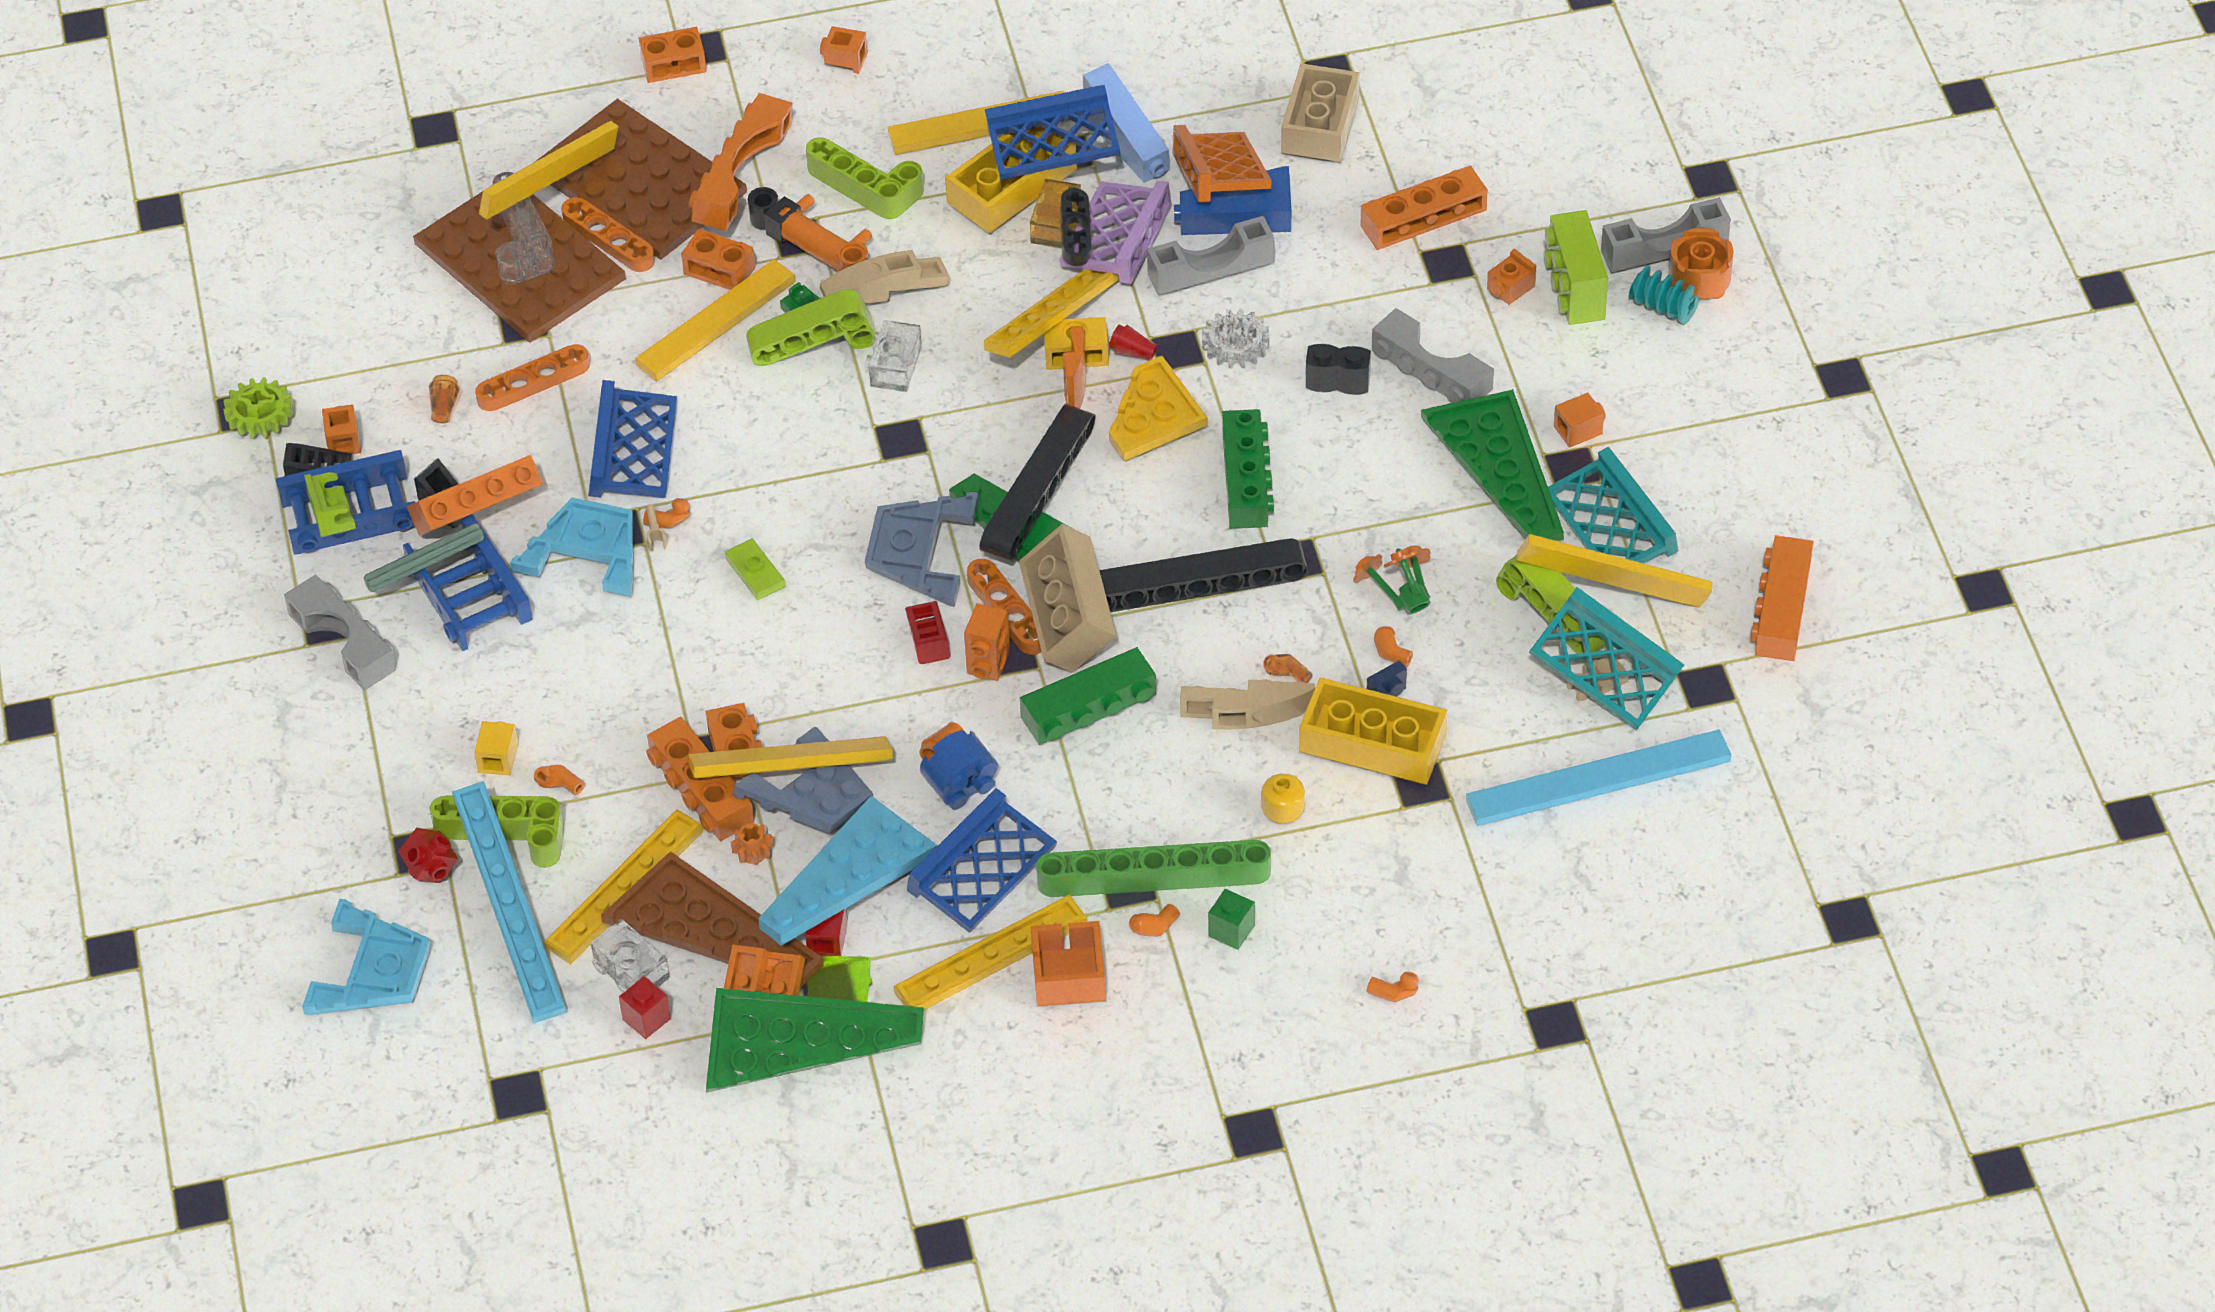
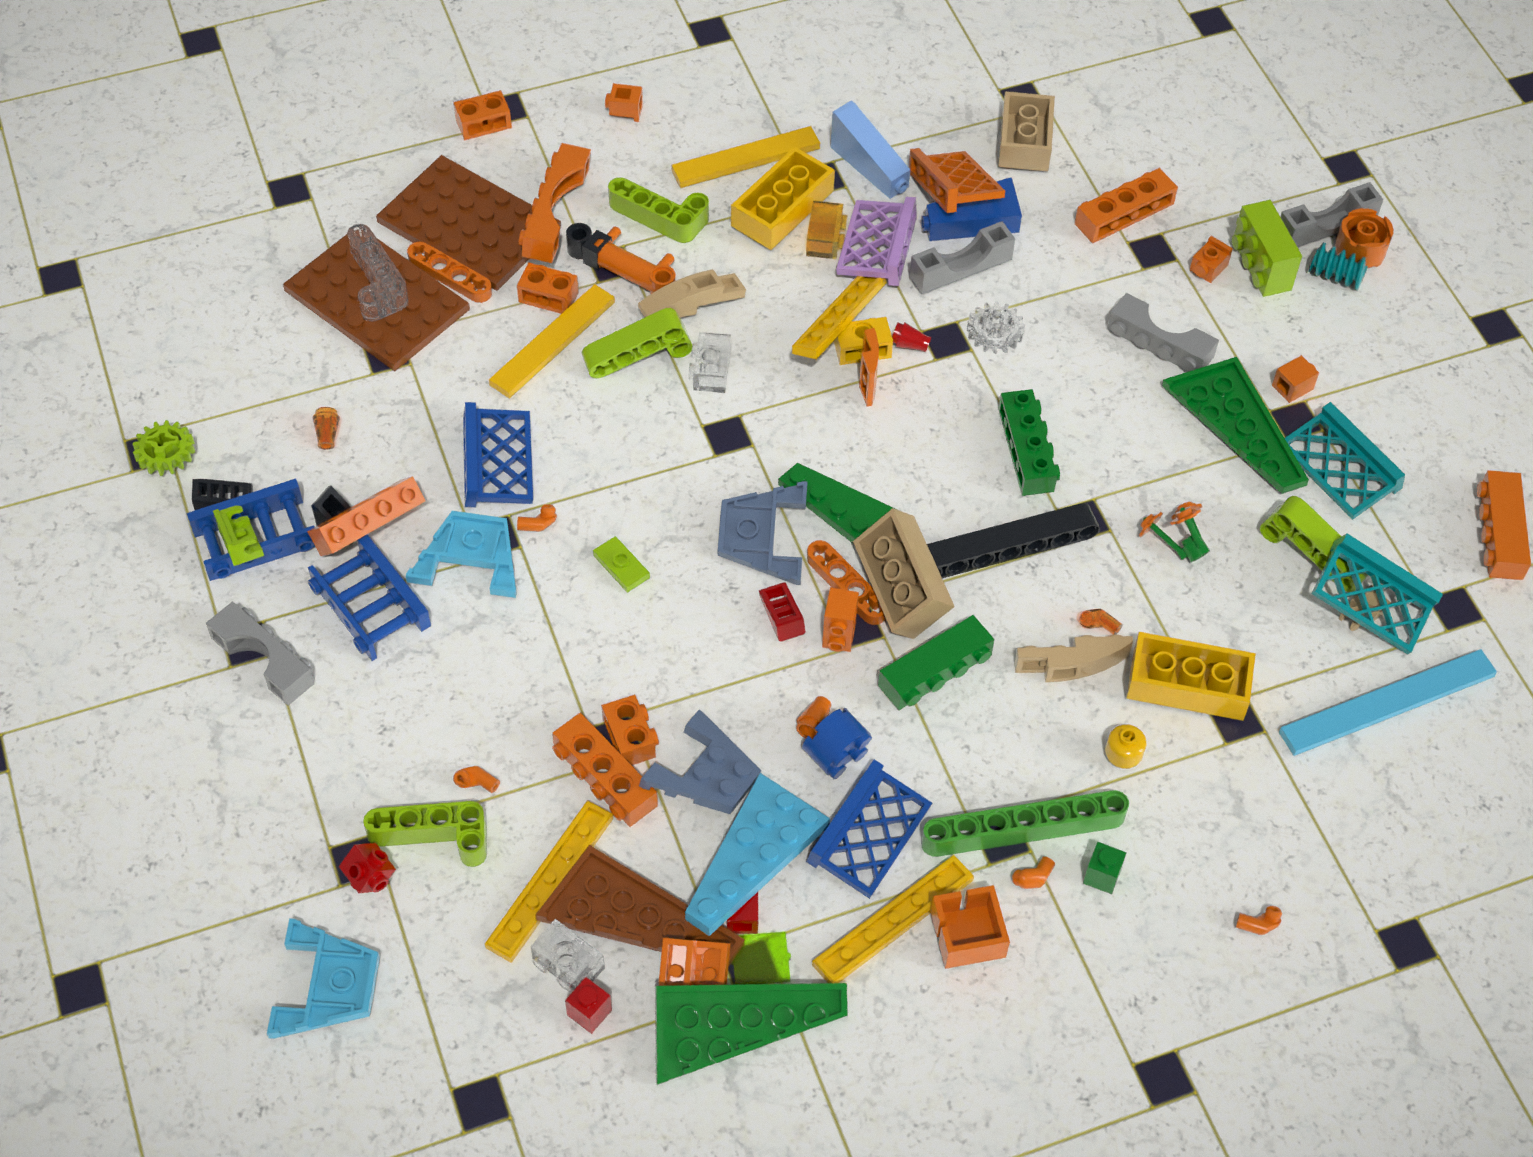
camera: 10 degrees left, 5 degrees up
(341, 429) = (240, 462): orange brick -> none
(423, 557) = (328, 579): sand green axle -> none
(496, 748) = (415, 754): yellow brick -> none
(509, 902) = (448, 910): medium azure tile -> none
(530, 373) = (399, 399): orange beam -> none
(548, 170) = (393, 220): yellow tile -> none
(655, 532) = (529, 537): tan hand -> none
(752, 843) = (661, 829): orange gear -> none
(790, 757) = (684, 744): yellow tile -> none
(798, 296) = (621, 318): green tile -> none
(1037, 482) = (855, 469): black beam -> none
(1048, 113) = (809, 146): blue fence -> none
(1068, 236) = (842, 249): black beam -> none
(1154, 410) = (940, 395): yellow plate -> none
(1338, 369) = (1087, 348): black brick -> none
(1388, 648) = (1181, 594): orange arm -> none
(1389, 680) = (1192, 628): dark blue bracket -> none
(1614, 570) = (1366, 513): yellow tile -> none

